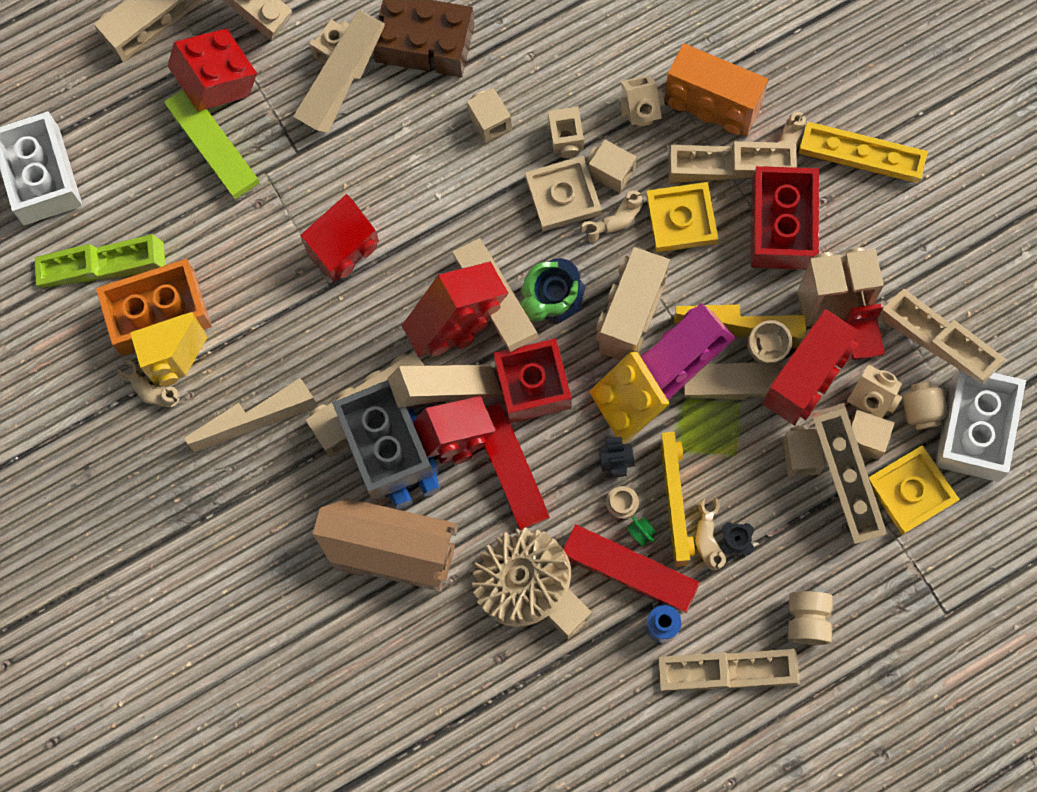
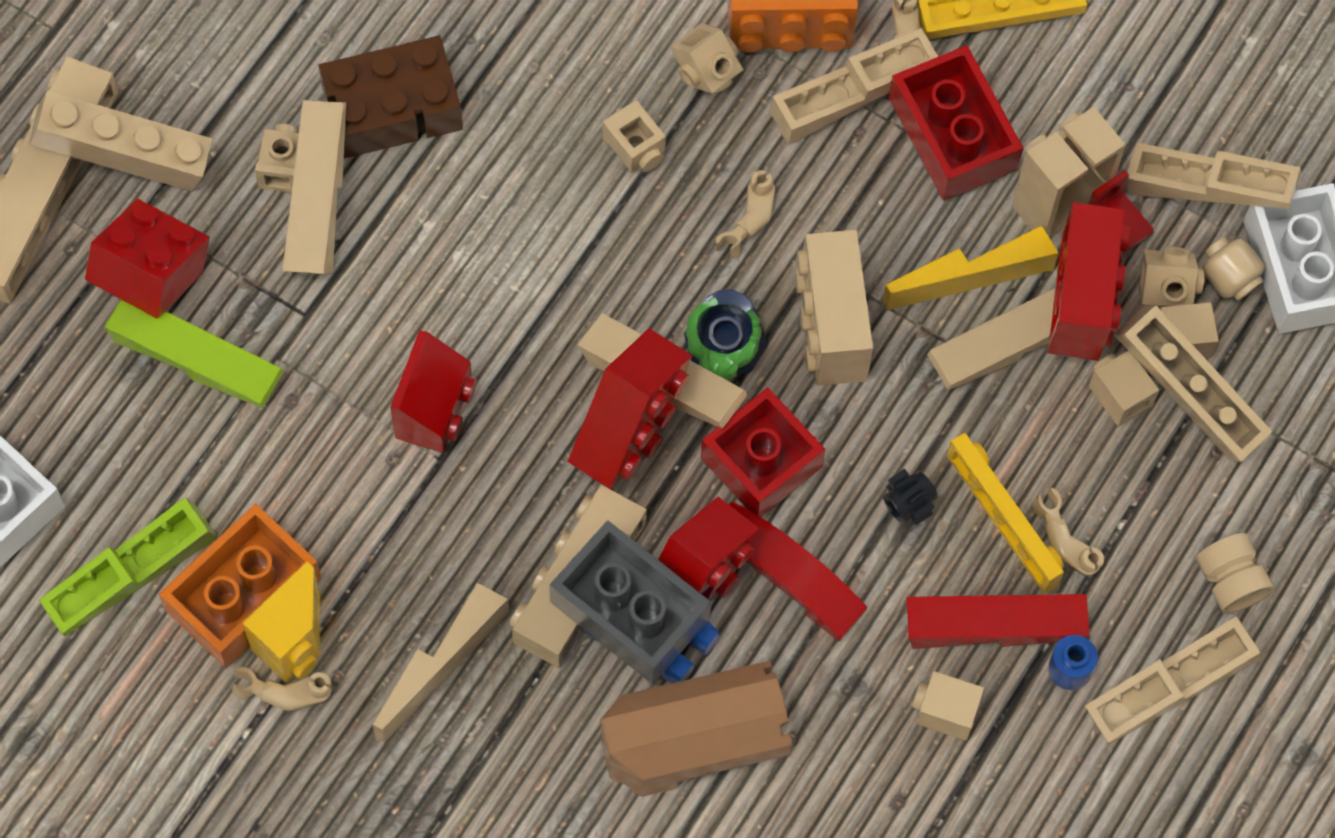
camera: 35 degrees left, 5 degrees down
(442, 383) = (662, 504): tan slope -> none
(489, 114) = (527, 159): tan brick -> none
(522, 578) = (879, 689): tan wheel -> none
(563, 193) = (671, 214): tan plate -> none
(611, 165) = (712, 154): tan brick -> none
(622, 502) = (944, 547): tan plate -> none
(629, 397) = (888, 417): yellow plate -> none
(641, 530) = (986, 568): green plate -> none
(682, 217) = (830, 177): yellow plate -> none
(686, 349) = (924, 335): dark pink brick -> none
(710, 427) = (997, 410): clear neon green piece -> none
(744, 531) = (1105, 513): black plate -> none
(769, 342) = (1022, 274): tan wheel -> none
(912, 490) = (1272, 371): yellow plate -> none

